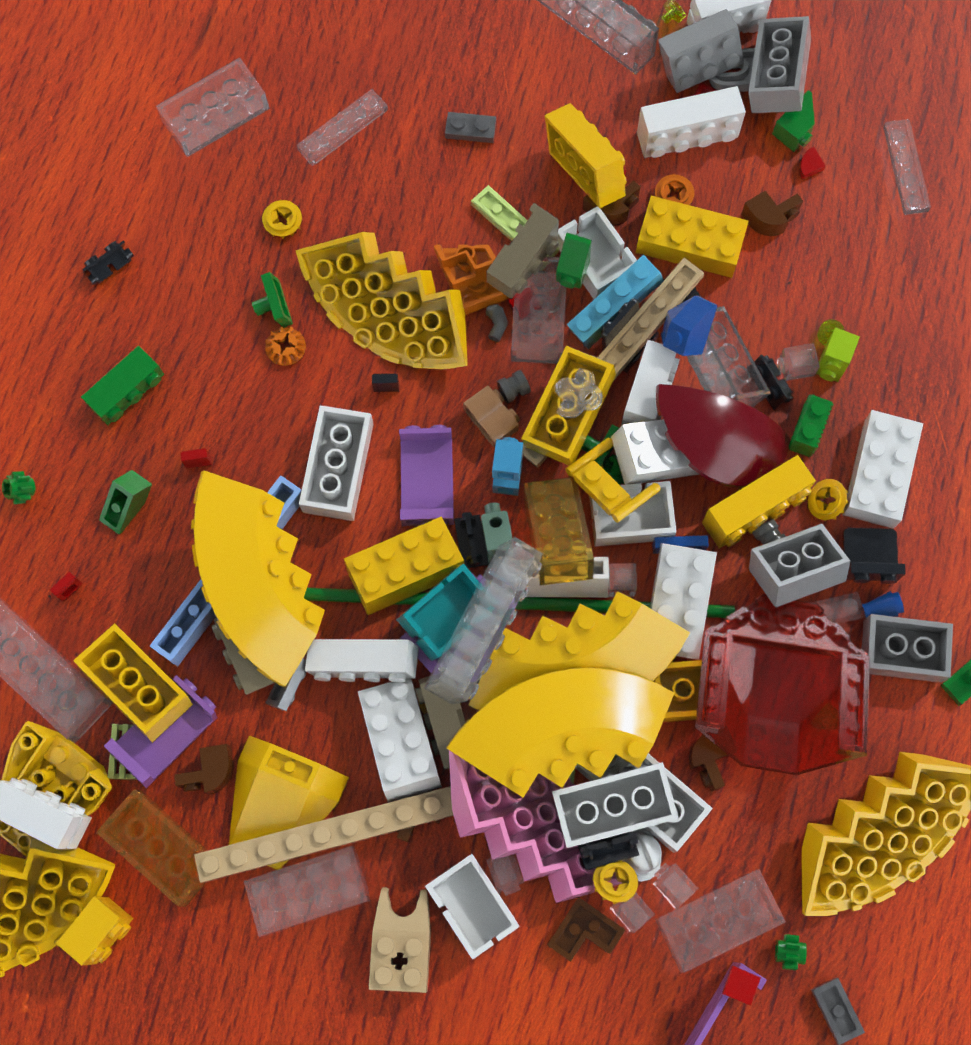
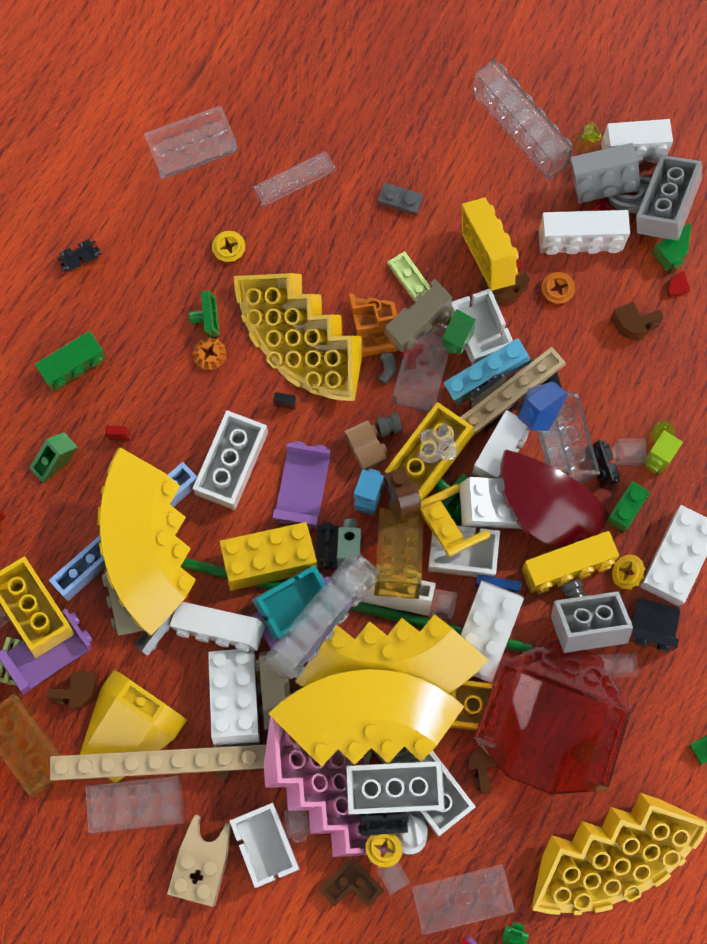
camera: 10 degrees right, 0 degrees up
(552, 461) = (405, 497): none -> reddish brown brick
(674, 884) = (432, 862): clear brick -> none
(693, 233) = (564, 328): yellow brick -> none
(886, 605) = (655, 670): blue cone -> none
(908, 647) = (666, 708): light grey brick -> none

